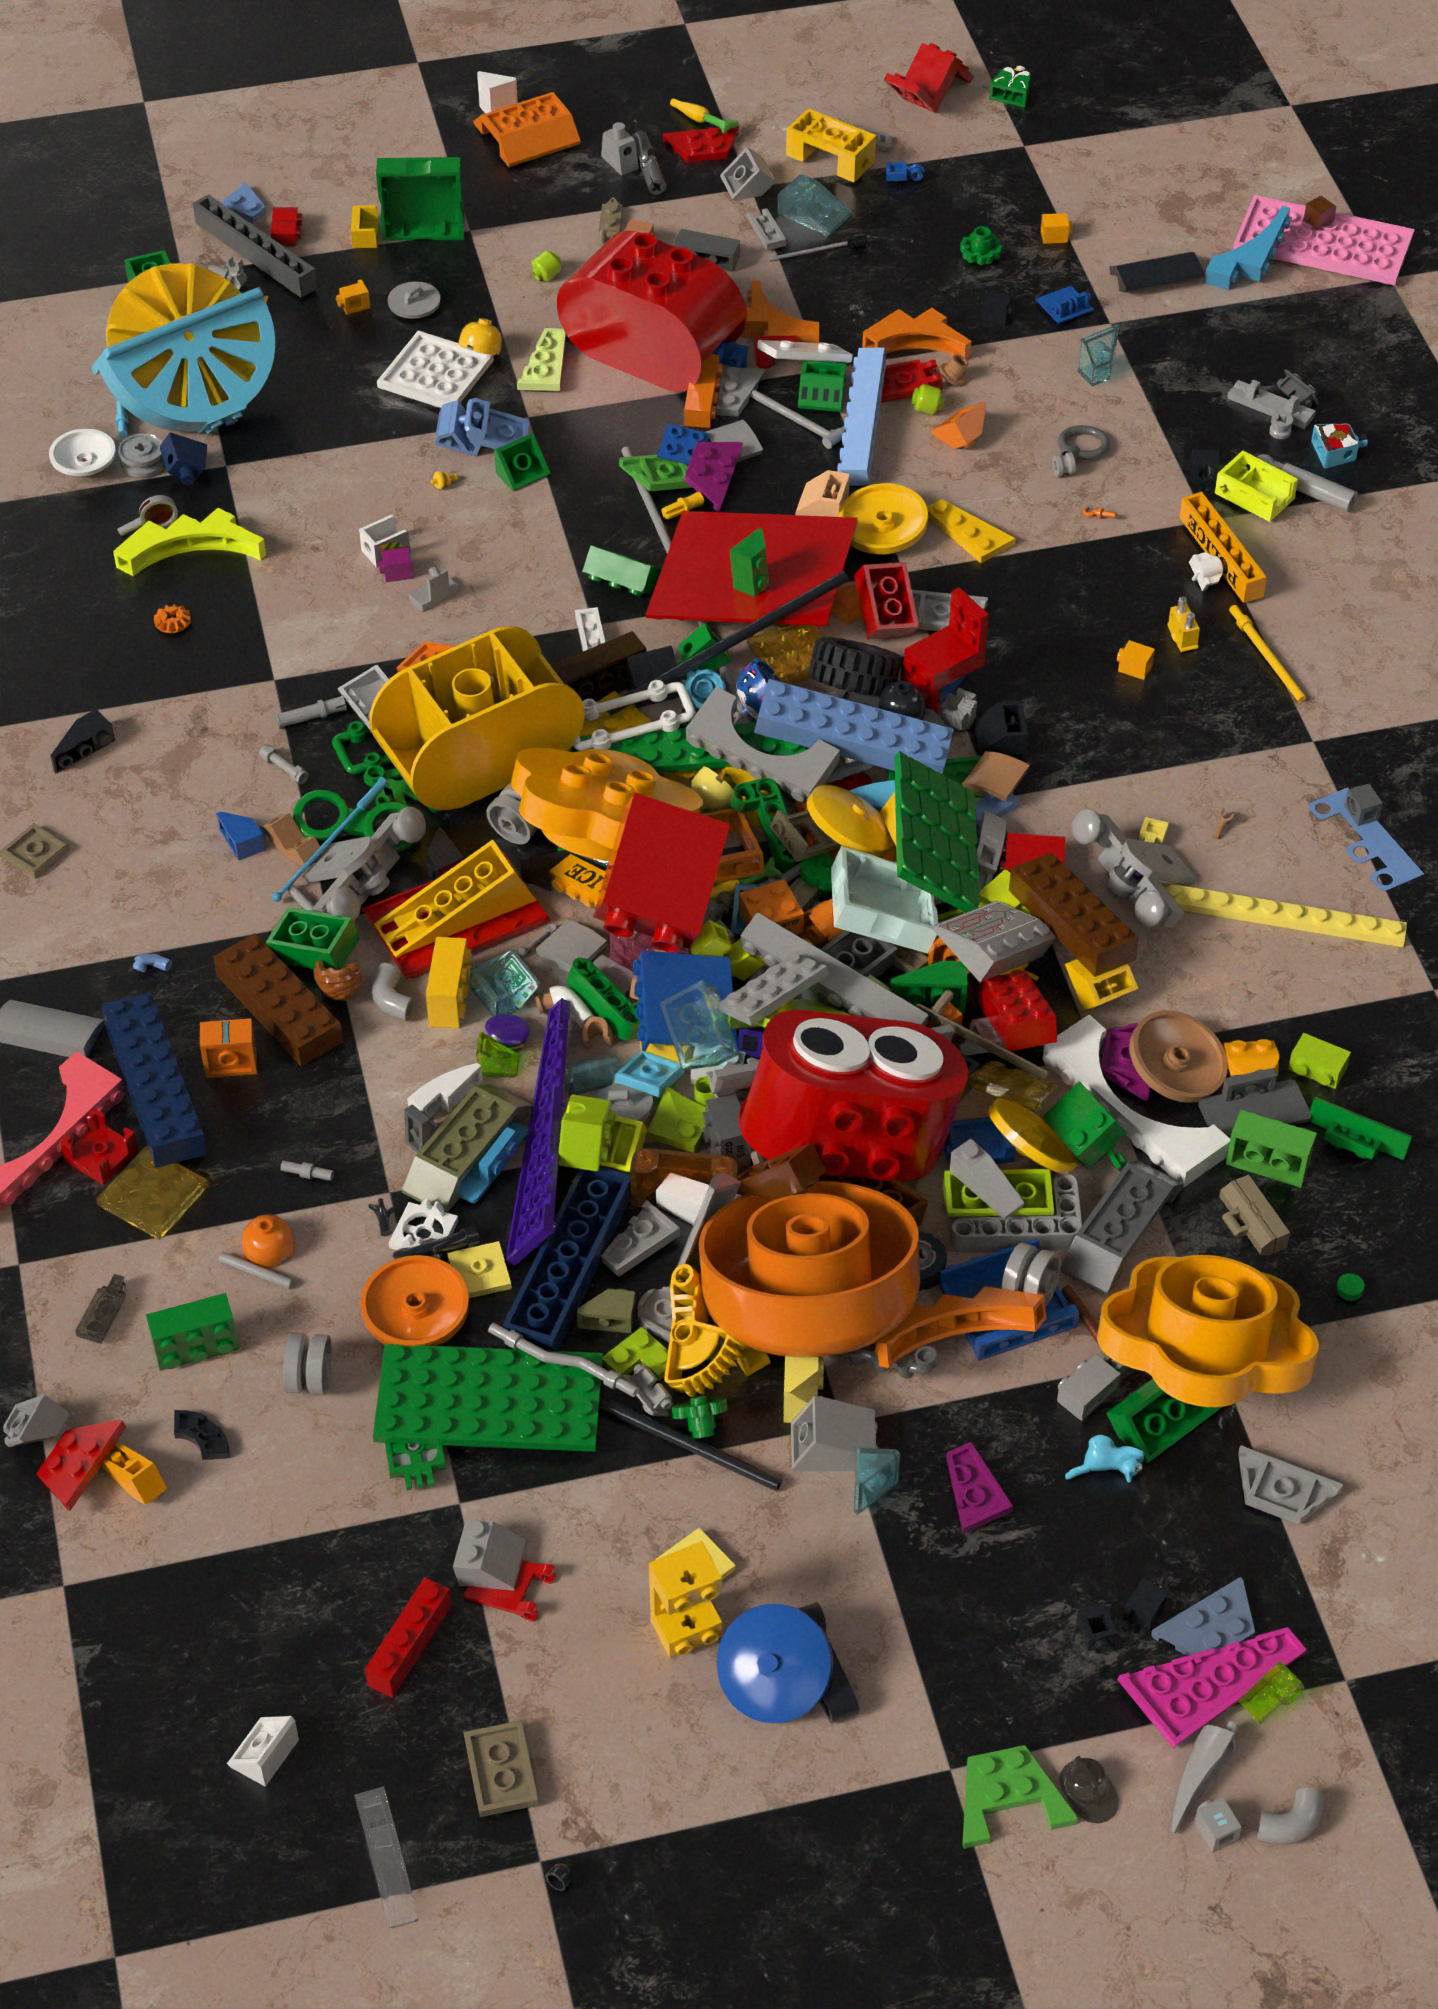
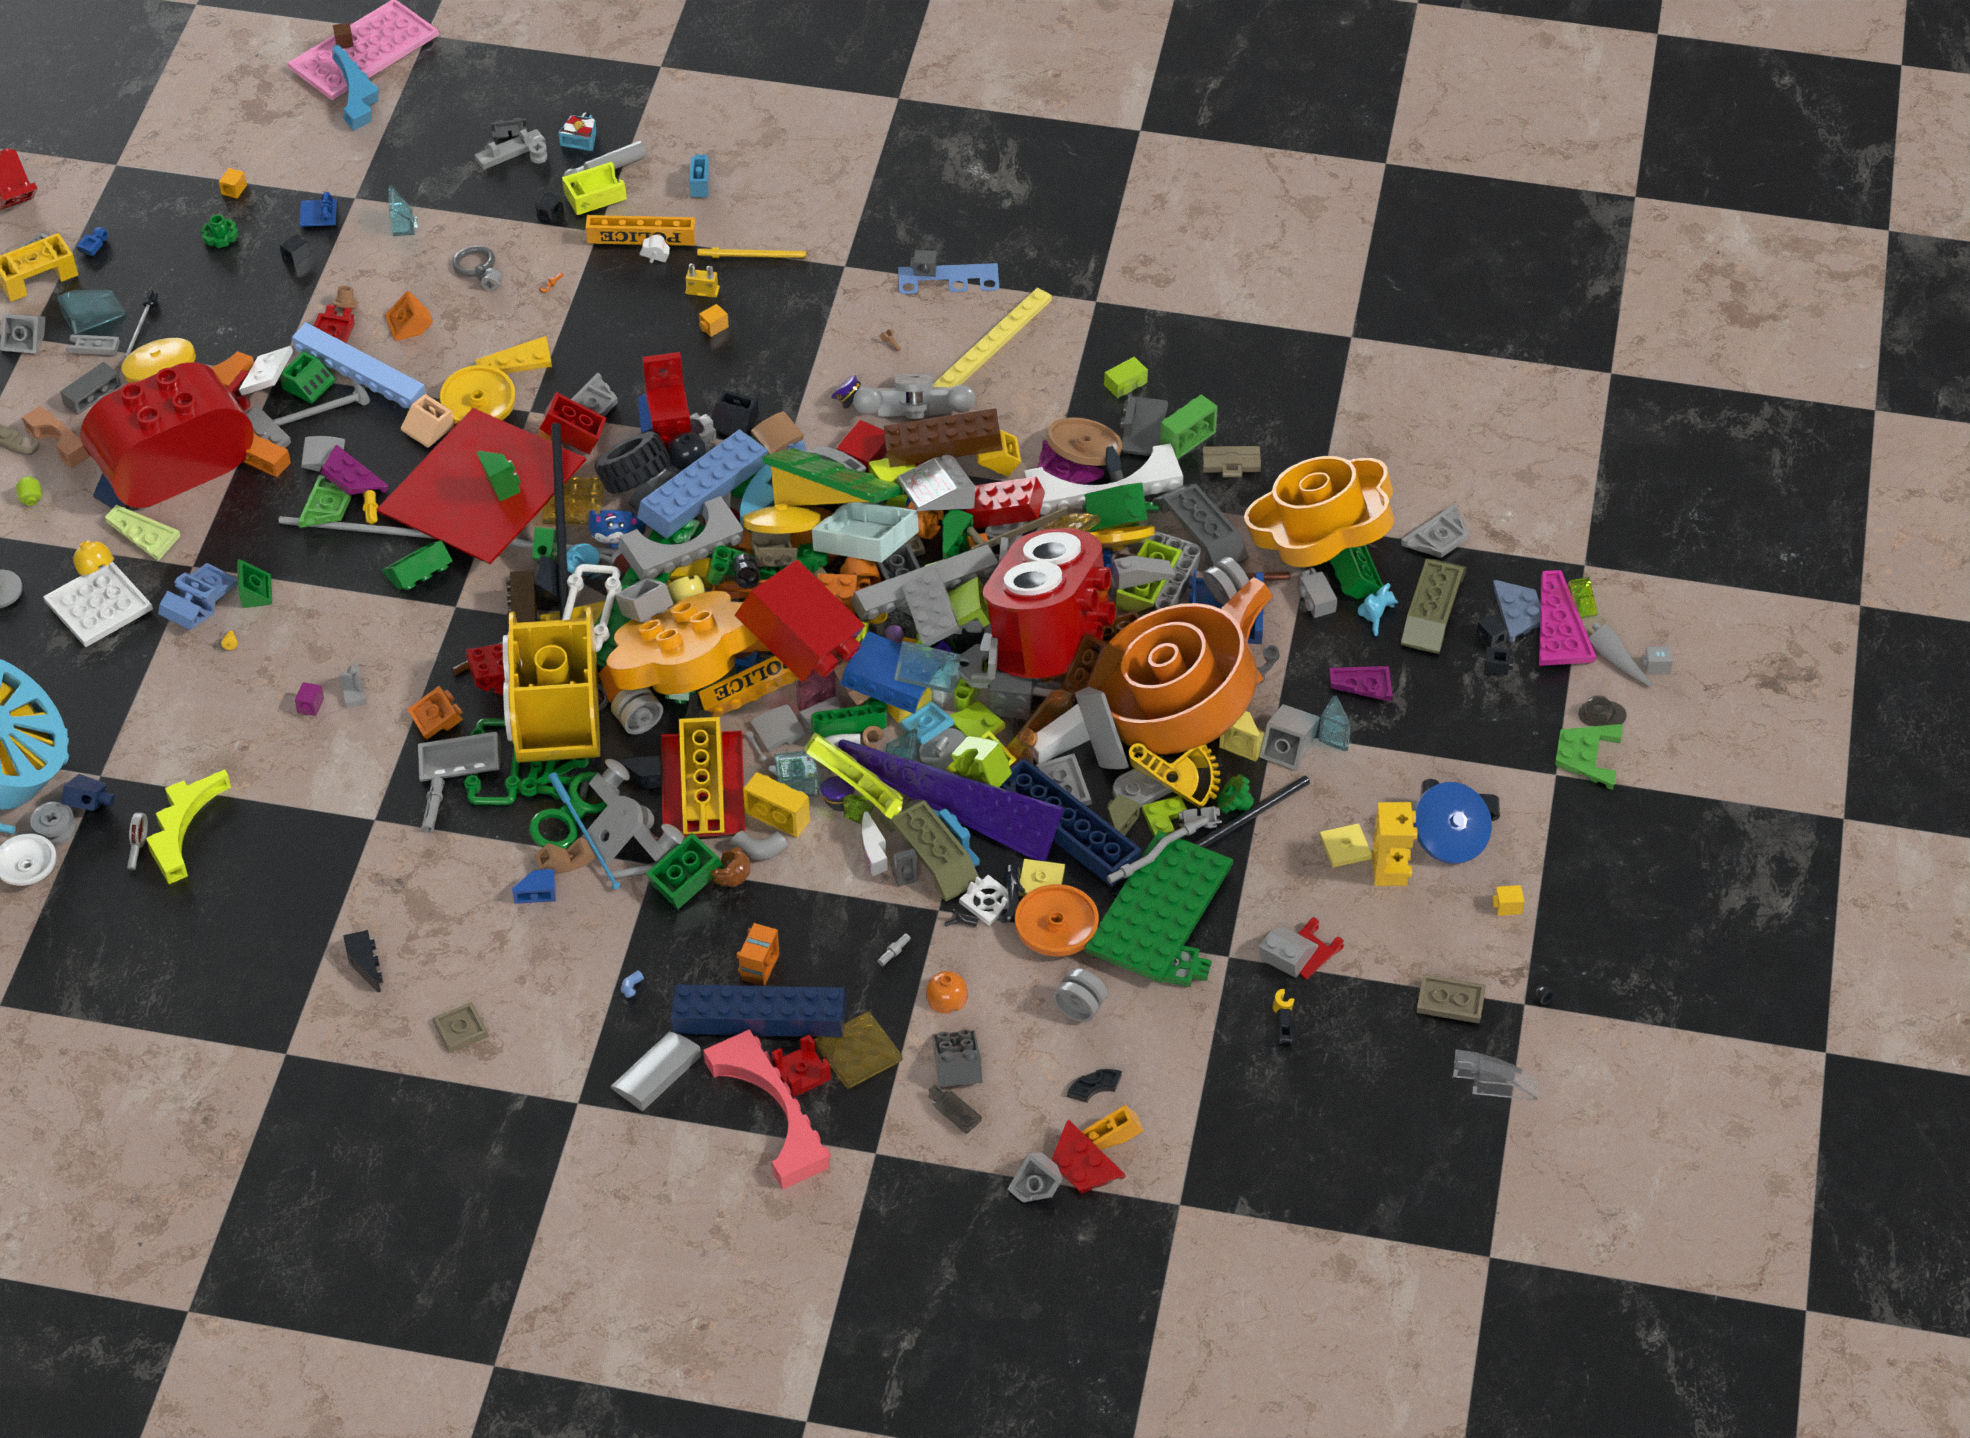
camera: 65 degrees left, 0 degrees up
(173, 624) = (257, 869): orange gear -> none
(175, 1281) = (957, 1058): none -> dark grey slope
(192, 1331) = (1014, 1054): green brick -> none
(256, 1270) = (966, 1008): light grey bar -> none
(265, 1748) = (1375, 1120): white slope -> none
(278, 999) = (722, 913): reddish brown brick -> none
(296, 773) = (459, 845): light grey bar -> none
(382, 536) = (287, 703): white piece -> none
(383, 1592) = (1284, 1017): none -> black piece
(408, 1637) = (1329, 1013): red brick -> none
(517, 1039) = (859, 777): none -> neon yellow arch
(589, 627) = (472, 608): white plate -> none
(651, 748) = (644, 600): none -> light grey piece
(680, 442) = (308, 481): blue hinge -> none
(694, 1780) = (1508, 900): none -> yellow brick
(751, 817) = (745, 571): none -> black wheel
(770, 277) = (155, 356): none -> yellow dish
(924, 332) = (288, 301): orange arch -> none
(927, 399) = (365, 325): lime head -> none
(1011, 86) = (48, 140): green torso -> none
(1112, 808) = (846, 391): none -> piece
(1152, 1513) = (1432, 605): none -> olive slope
(1153, 830) = (879, 377): light yellow plate -> none
(1156, 1096) = (1113, 464): none -> black piece
(1157, 271) = (326, 147): black slope -> none
(1251, 1056) = (1104, 408): light orange slope -> none
(1295, 1824) = (1674, 625): light grey cylinder -> none
(1344, 560) = (699, 176): none -> dark azure hinge
(1350, 1287) = (1308, 440): green piece -> none
(1358, 1132) = (1197, 382): green bracket -> none

